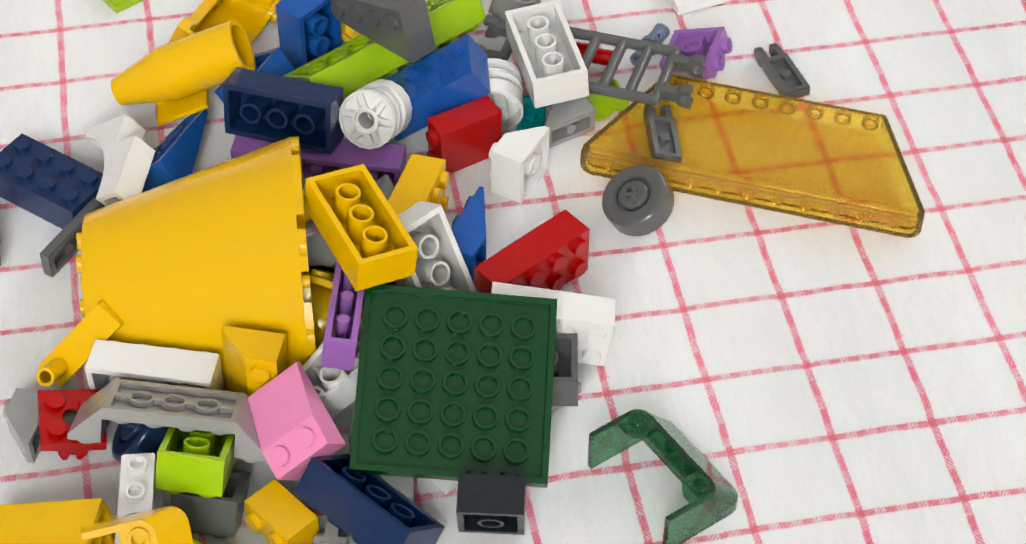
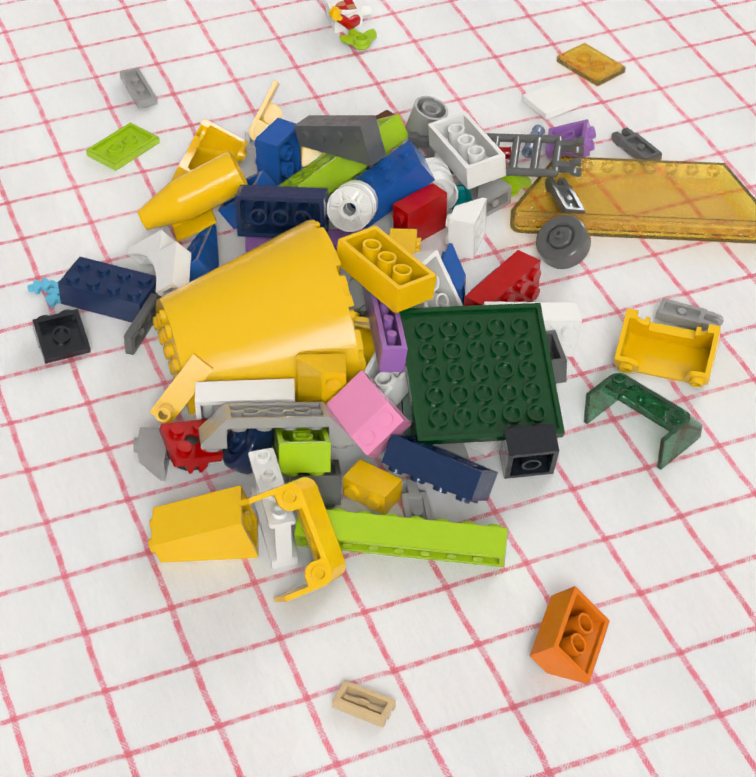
camera: 10 degrees left, 5 degrees down
(723, 380) = (667, 350): none -> yellow windscreen
(772, 333) = (687, 315): none -> light grey hinge

